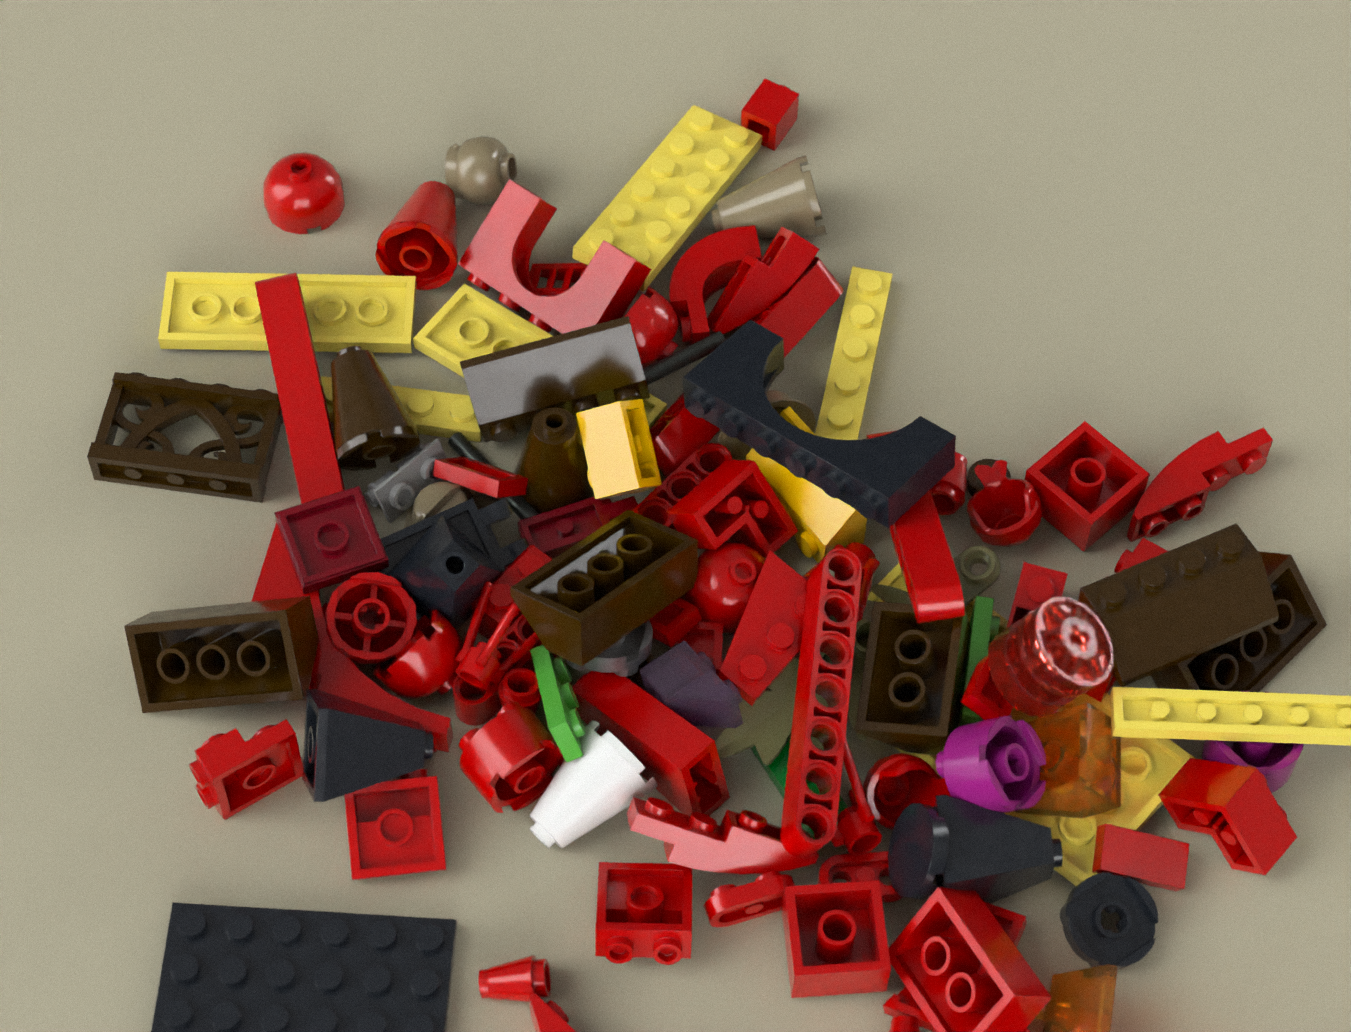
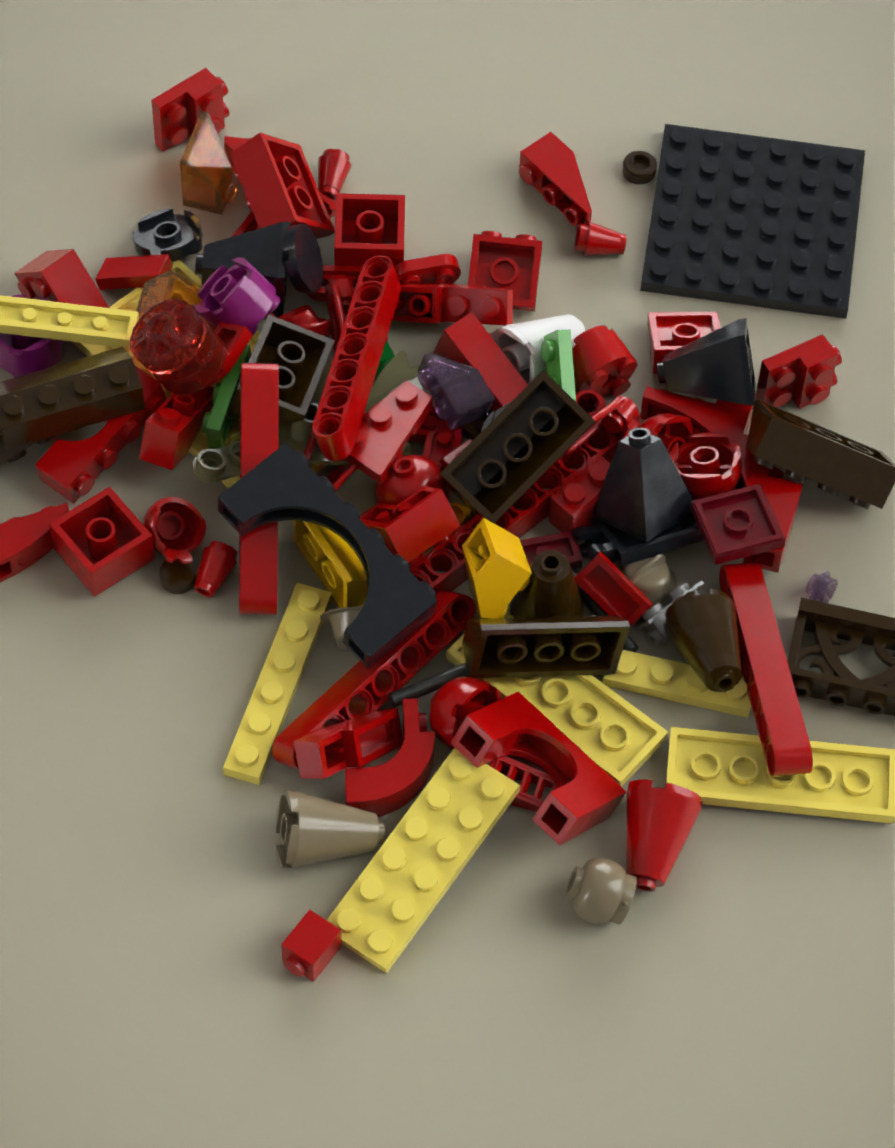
camera: 175 degrees left, 0 degrees up
(232, 521) = (821, 587): none -> plate
(303, 193) = (771, 901): red cylinder -> none

